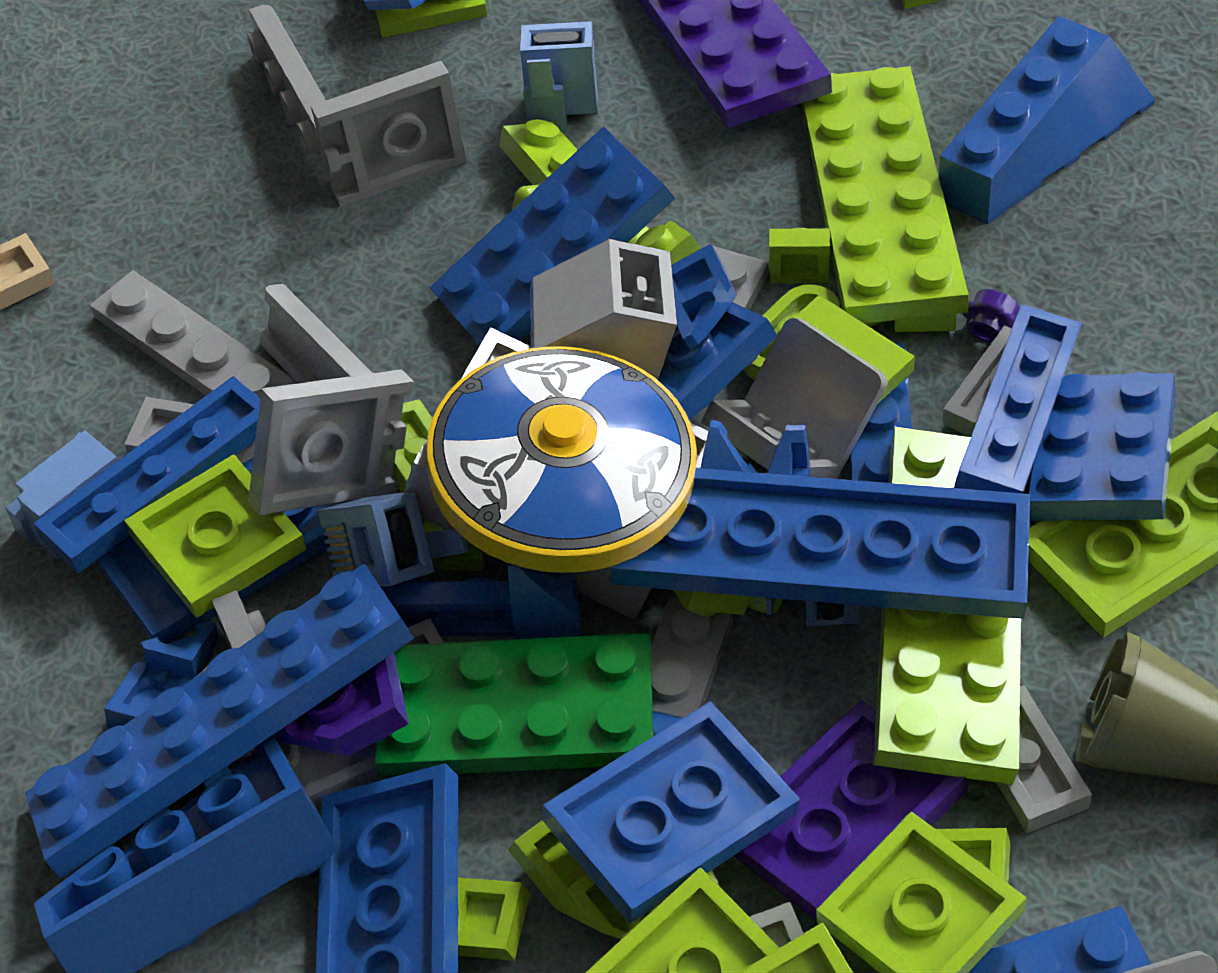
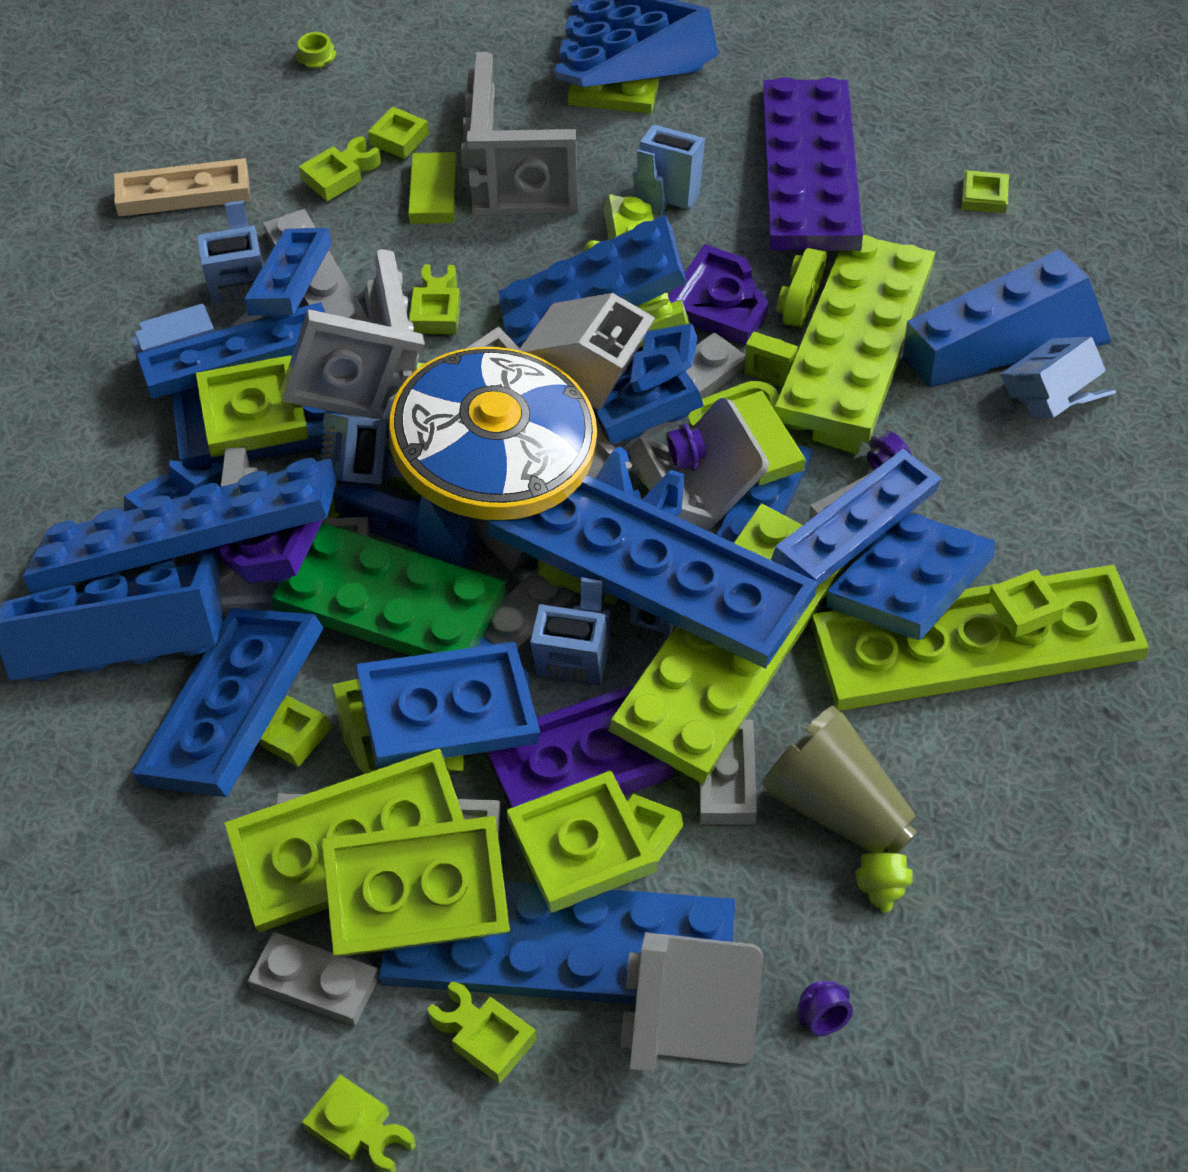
camera: 20 degrees right, 0 degrees up
(36, 72) = (315, 50): none -> lime plate
(87, 364) = (230, 257): none -> medium blue piece
(147, 211) = (337, 171): none -> lime plate
(173, 354) = (288, 272): none -> blue plate
(198, 138) = (398, 132): none -> lime plate
(276, 191) = (433, 188): none -> lime tile
(364, 325) = (436, 304): none -> lime plate
(706, 198) = (722, 295): none -> dark purple plate
(771, 393) = (685, 447): none -> dark purple plate
(772, 672) = (575, 640): none -> medium blue piece
(788, 174) = (806, 278): none -> lime plate
(1128, 160) = (1053, 374): none -> medium blue piece

